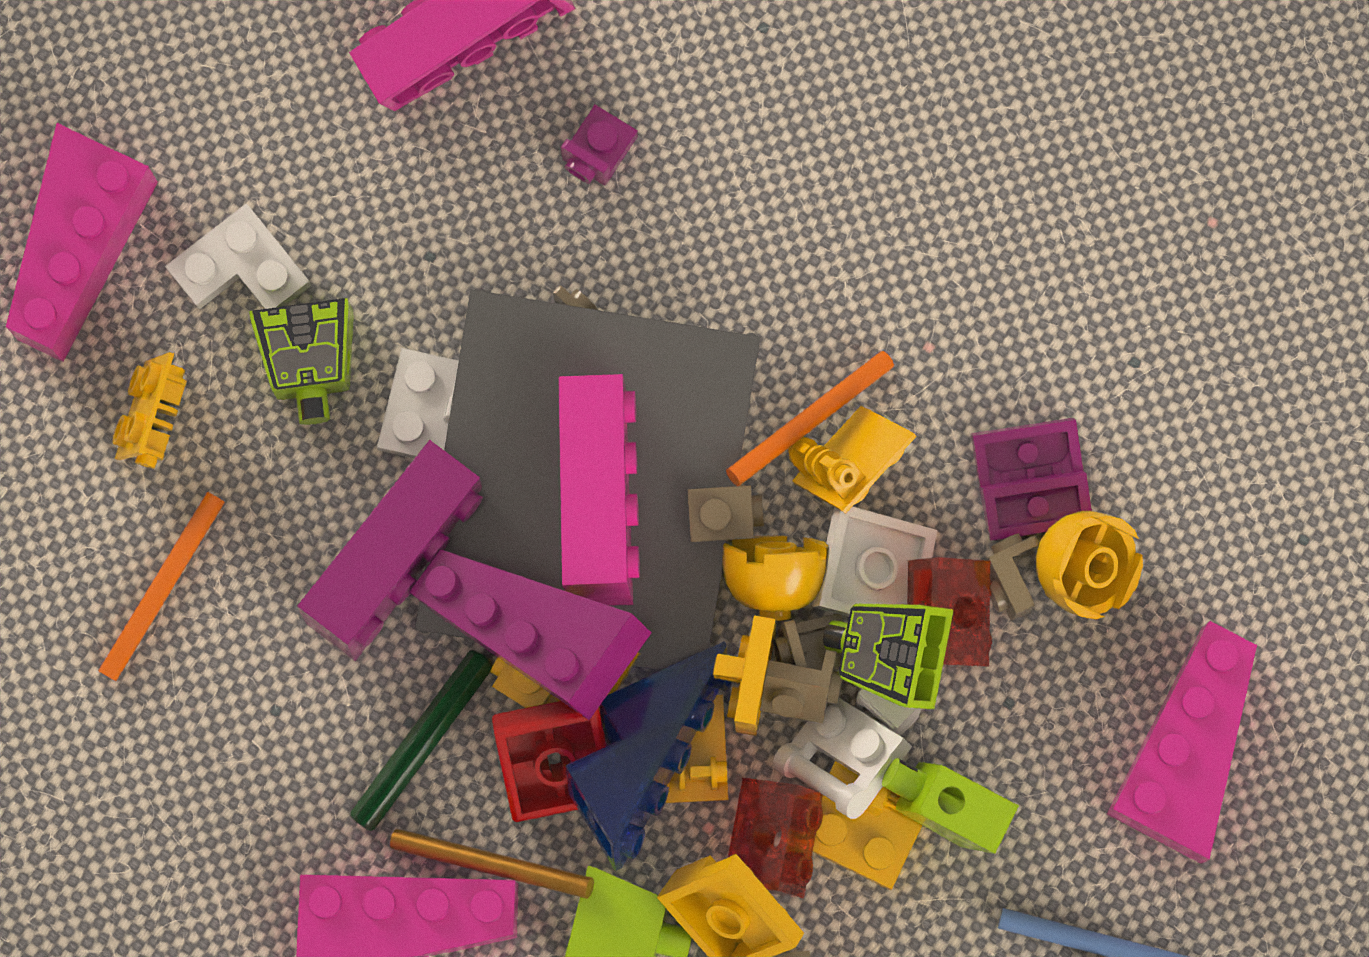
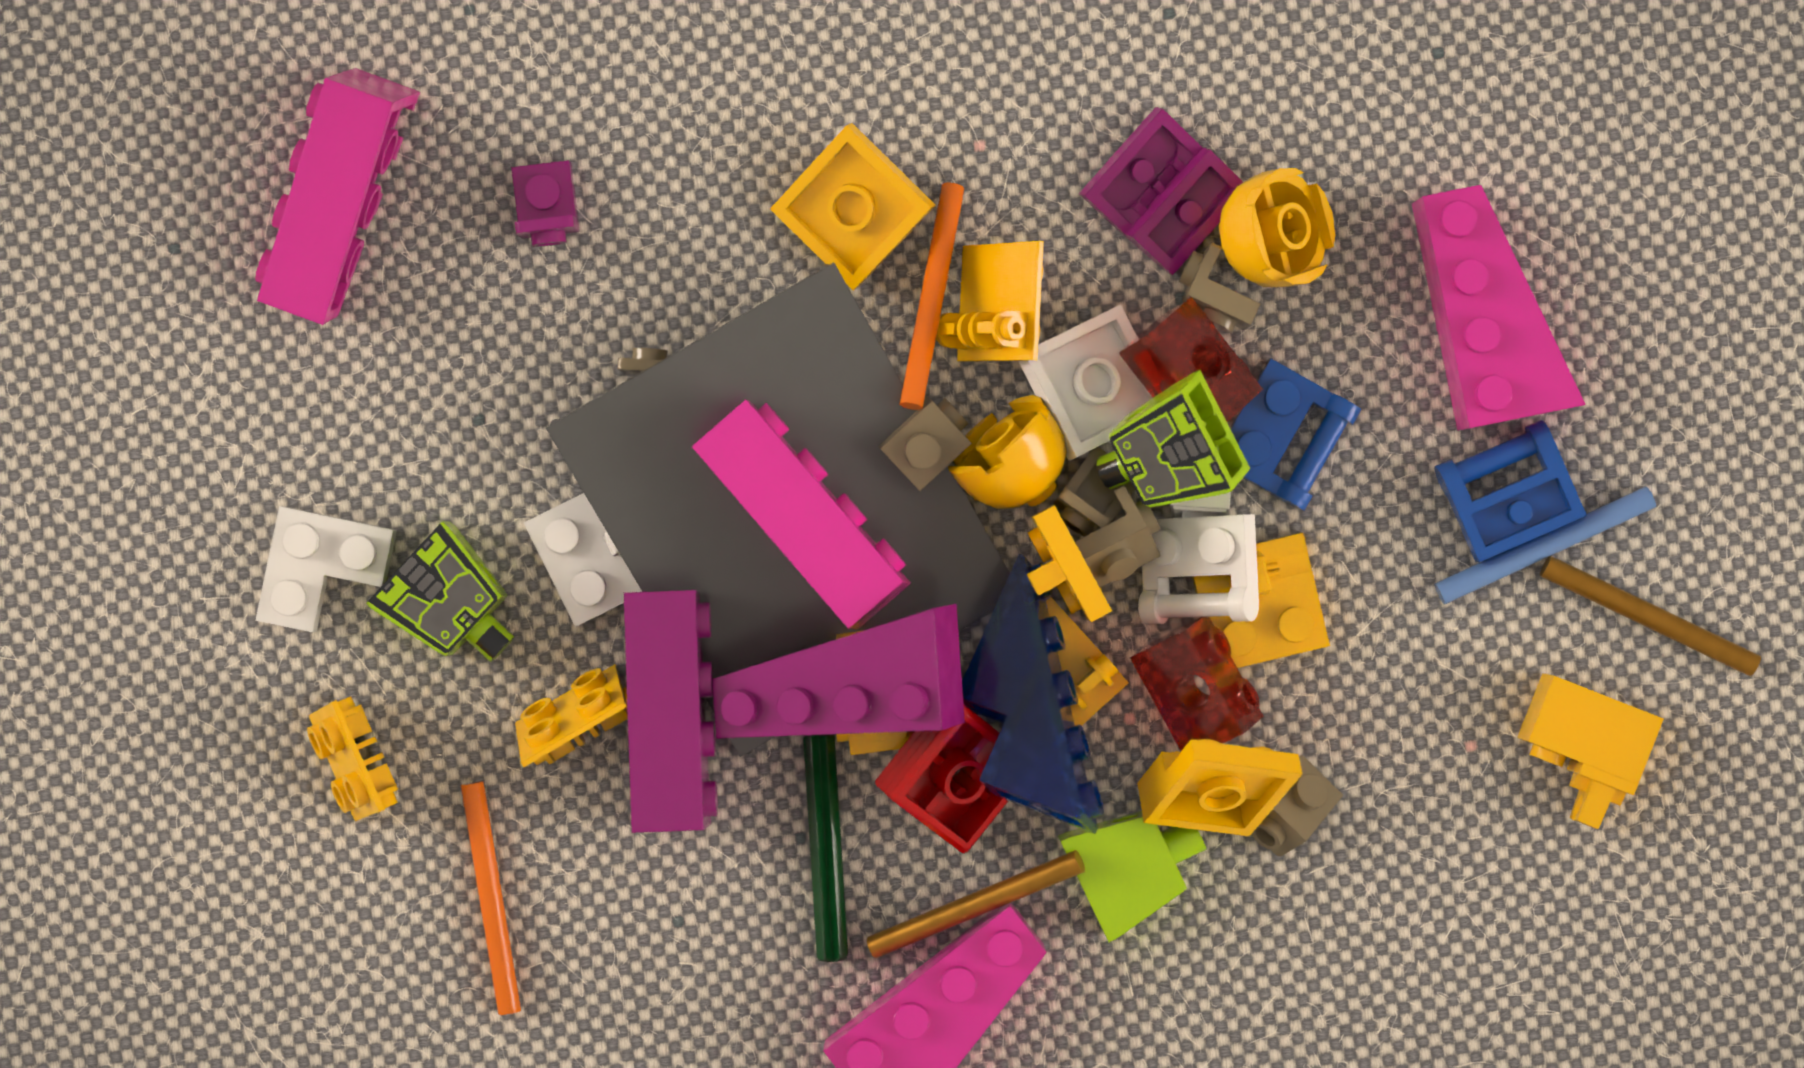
camera: 40 degrees left, 10 degrees up
(75, 237) = (156, 659): dark pink wedge -> none
(300, 494) = (550, 725): none -> yellow hinge
(805, 314) = (852, 206): none -> yellow hinge
(950, 804) = (1329, 538): lime torso -> none
(976, 699) = (1272, 420): none -> blue plate
(1106, 902) = (1518, 509): none -> blue plate

